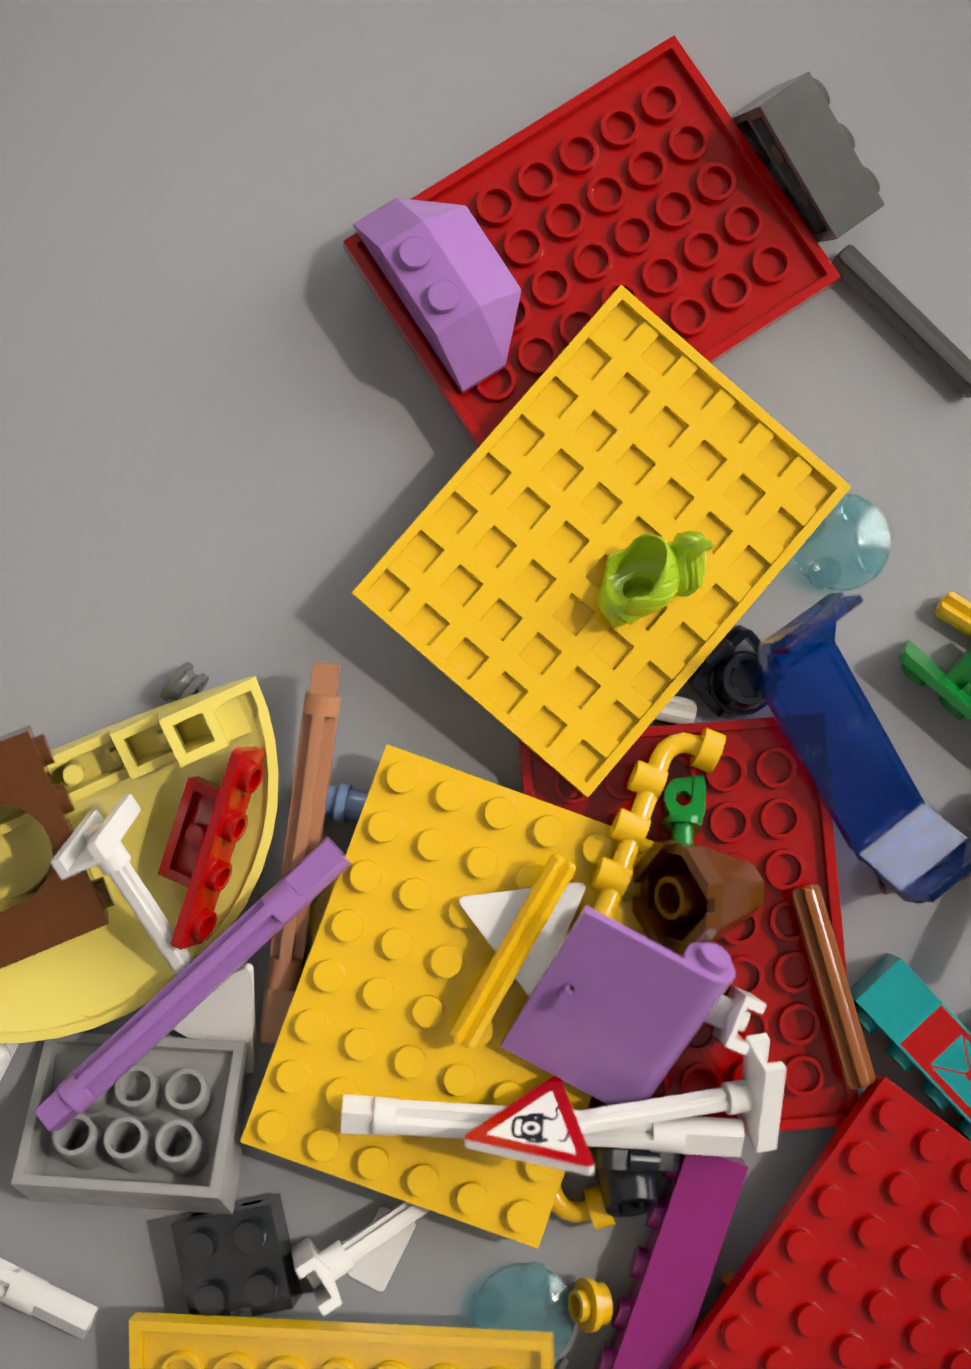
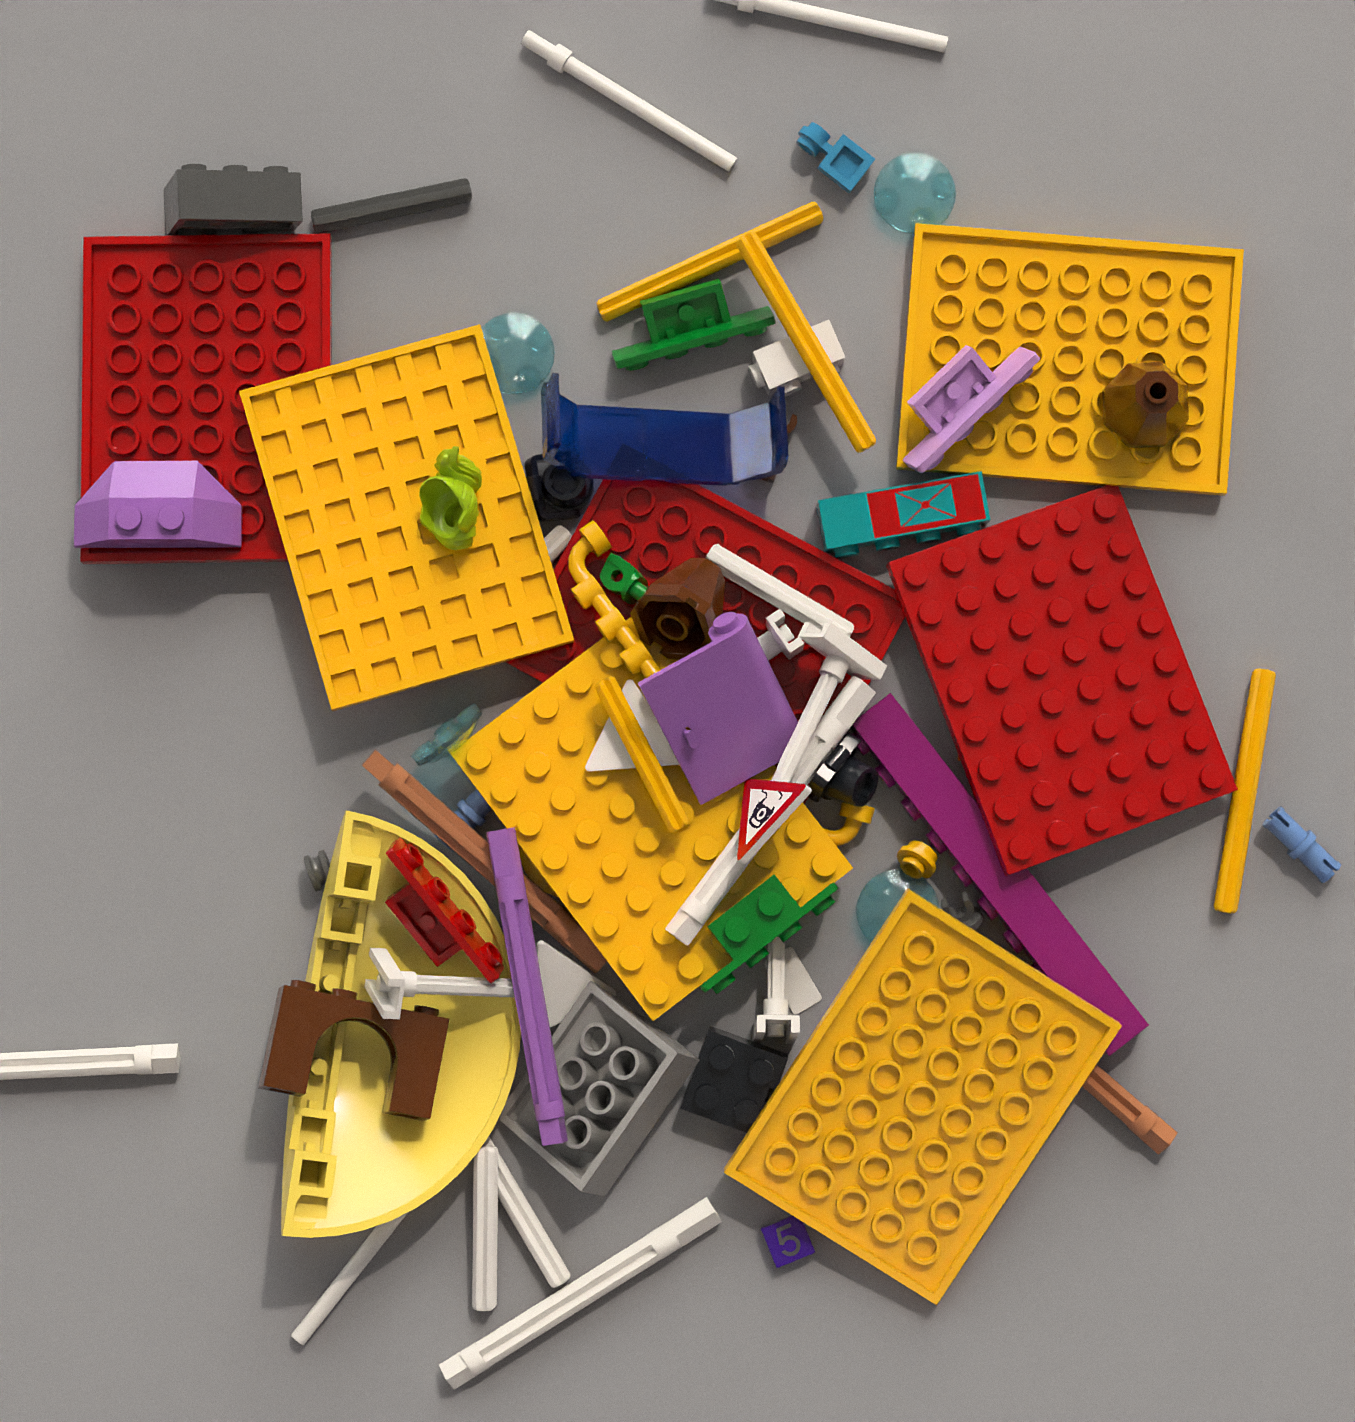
camera: 55 degrees left, 0 degrees up
(405, 733) = (448, 737): none -> clear light blue dish
(412, 1188) = (756, 922): none -> green bracket
(775, 974) = (775, 591): none -> white axle
(833, 986) = (808, 557): dark orange axle -> none

